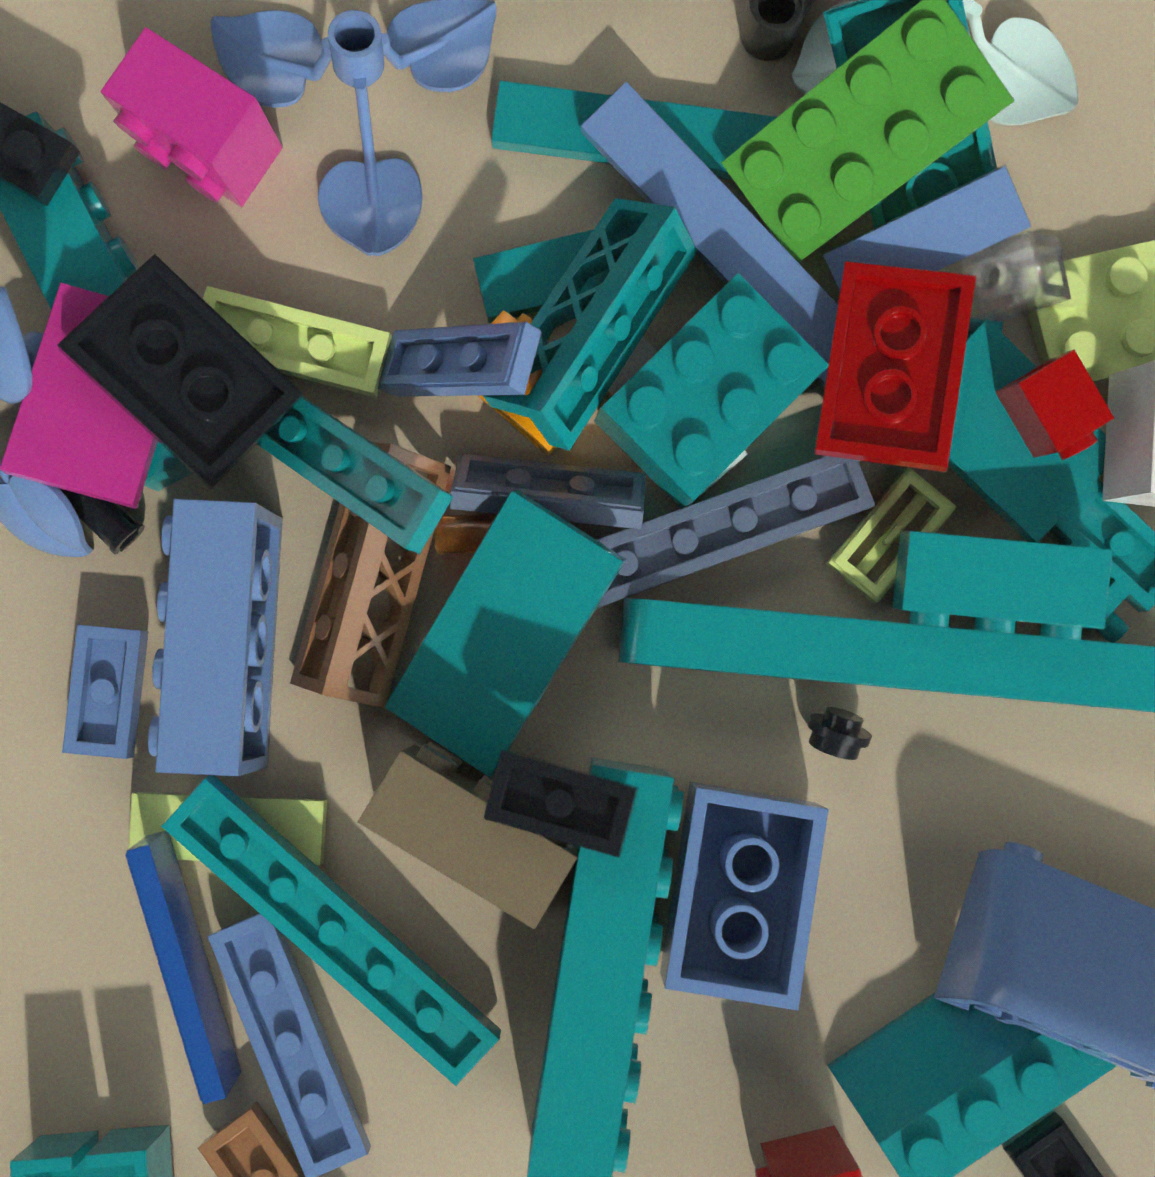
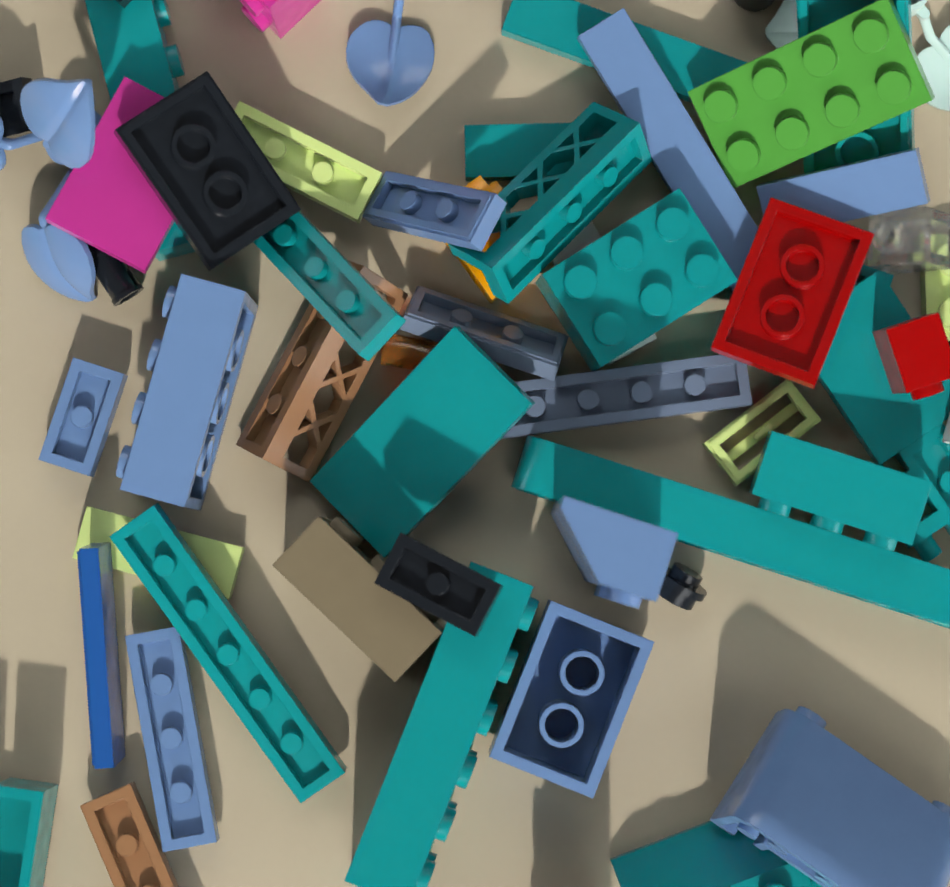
camera: 15 degrees right, 0 degrees up
(770, 721) = (615, 551): none -> medium blue slope

